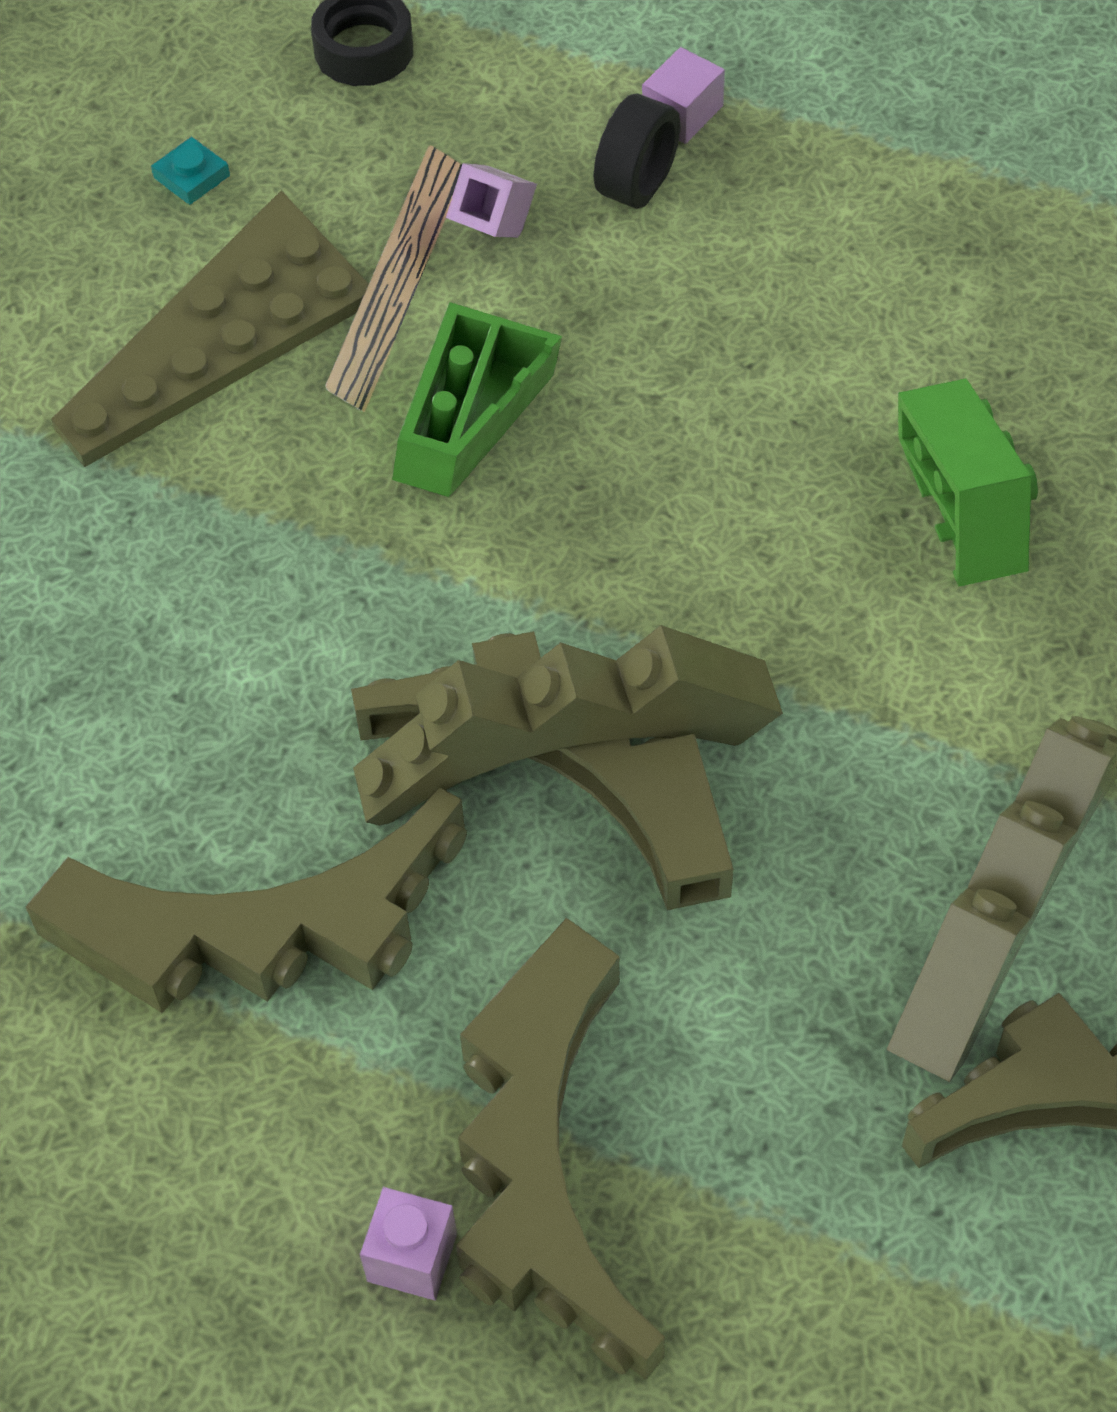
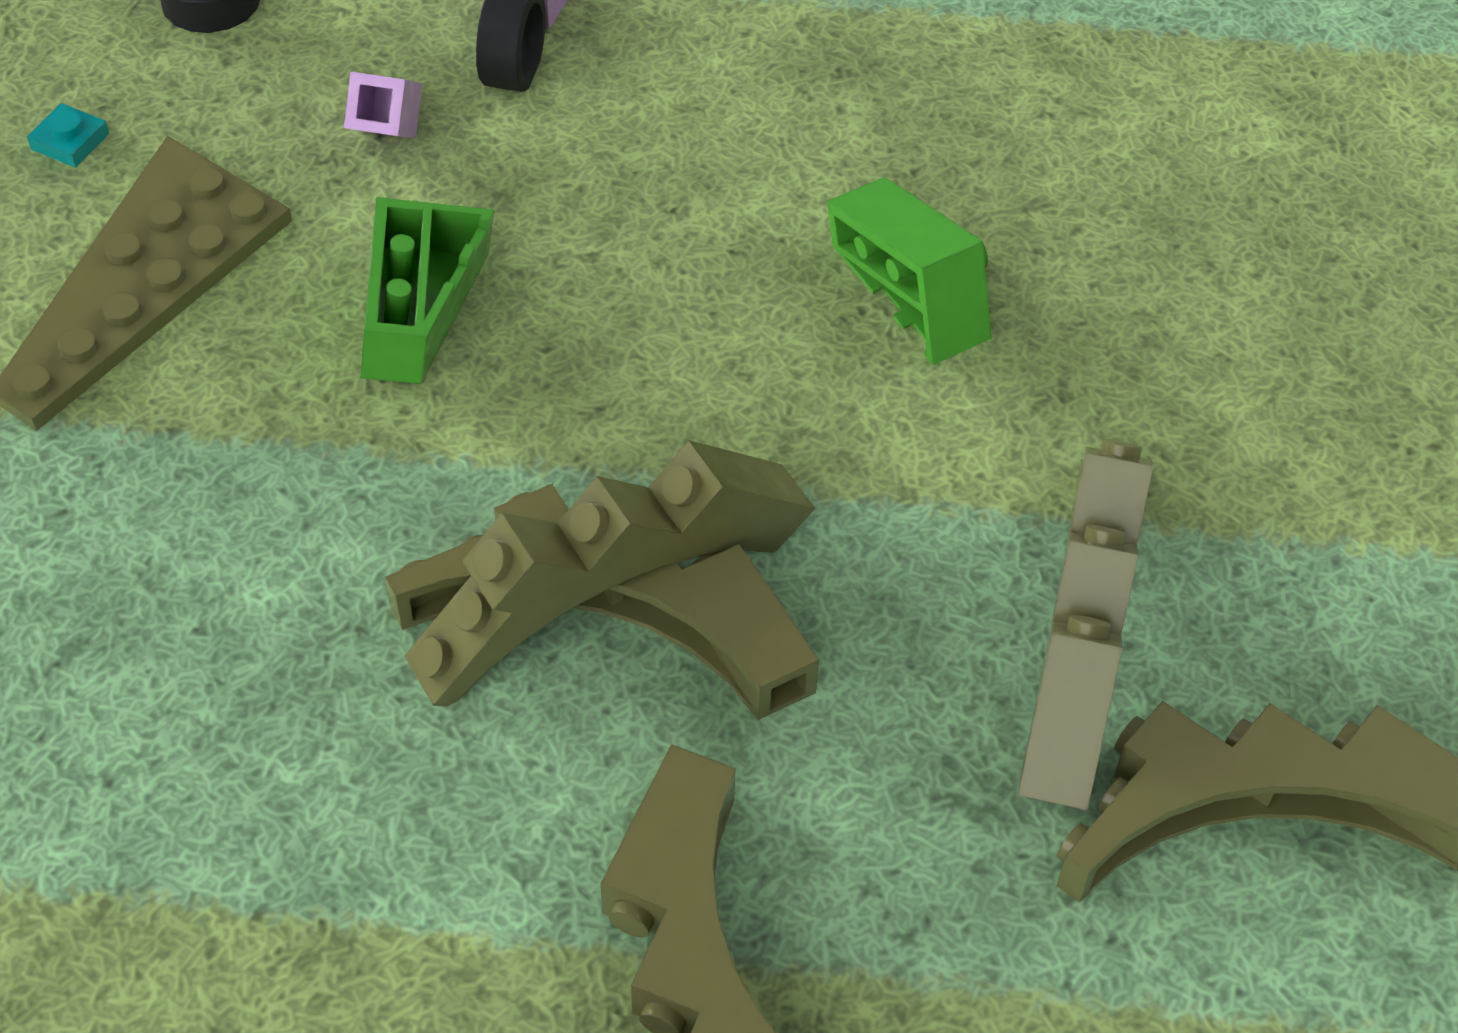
camera: 20 degrees left, 5 degrees down
(258, 938) = (256, 869): olive arch -> none
(394, 280) = (306, 197): tan sticker -> none

